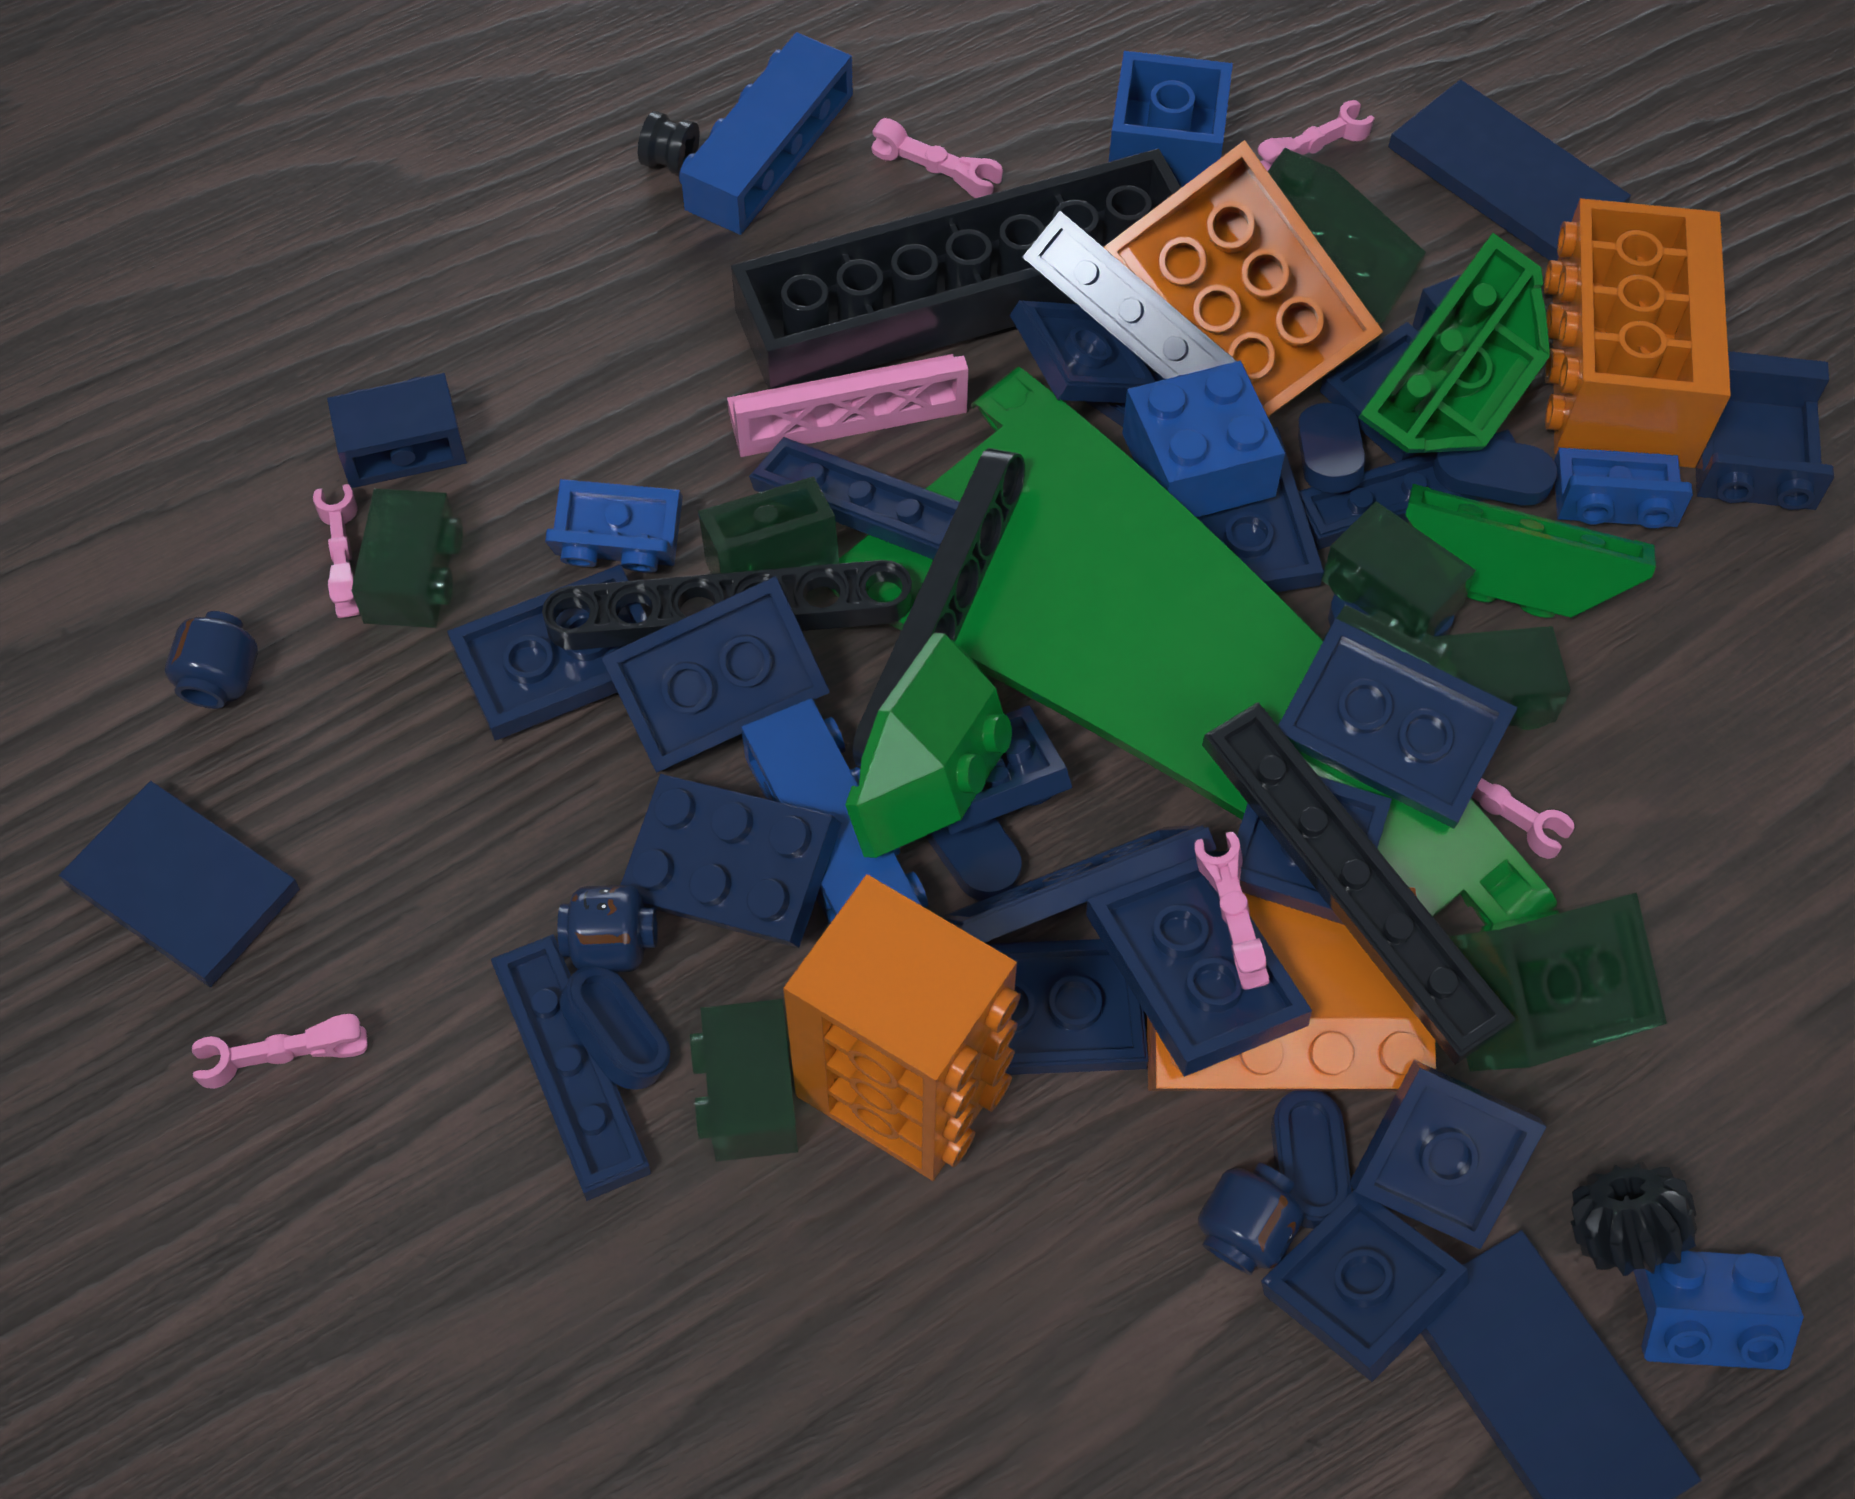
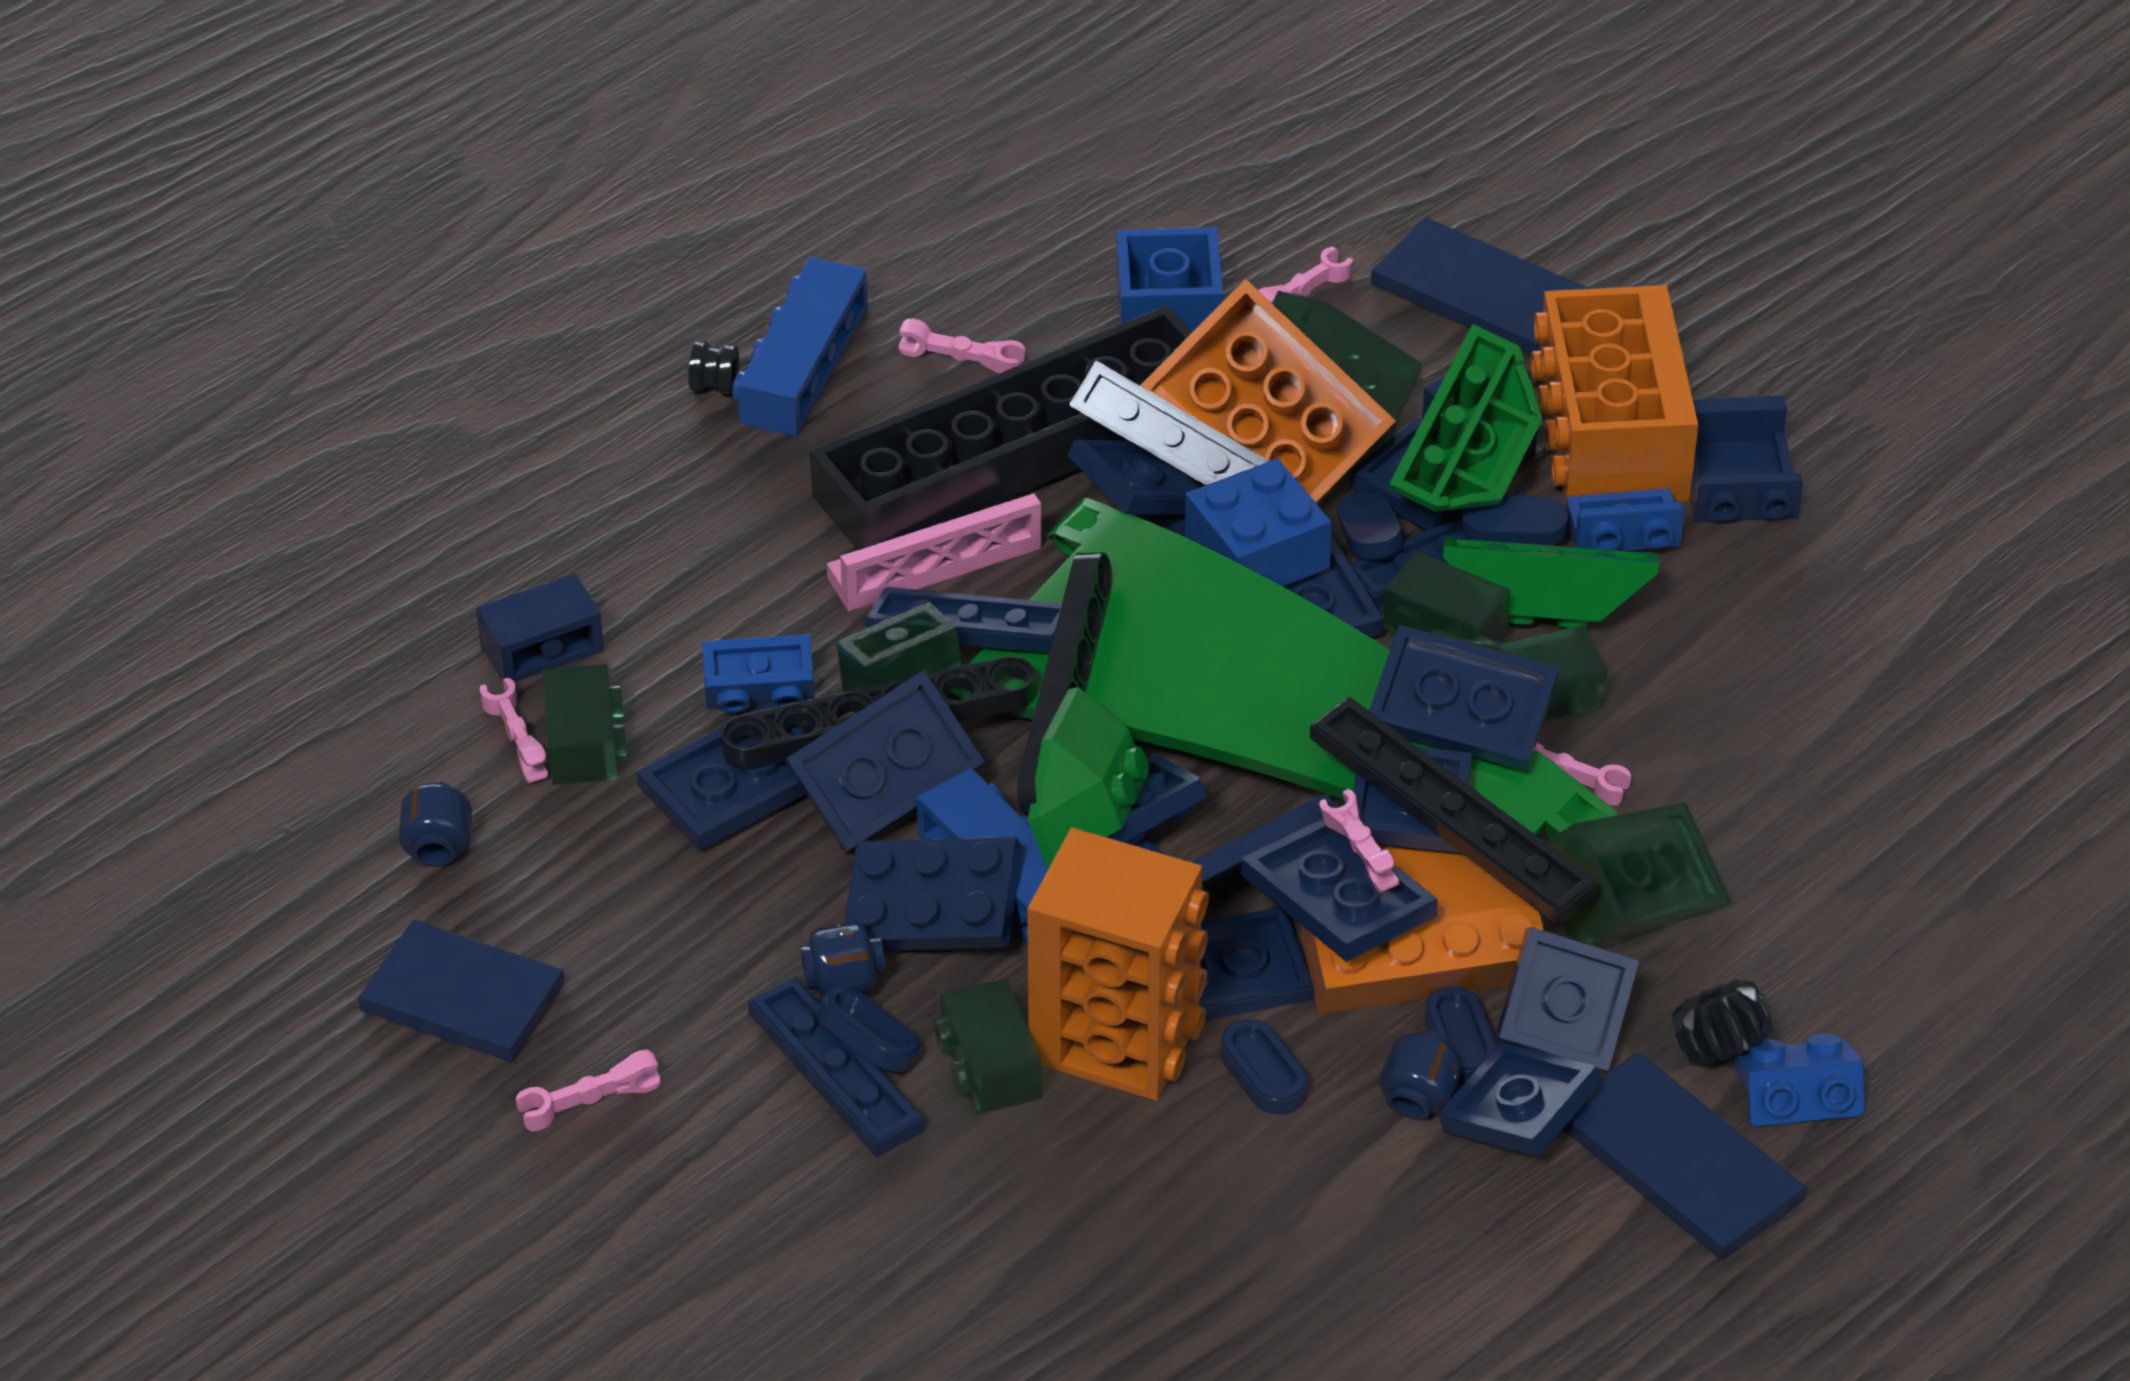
camera: 10 degrees left, 15 degrees down
(1067, 1160) = (1264, 1066): none -> dark blue tile

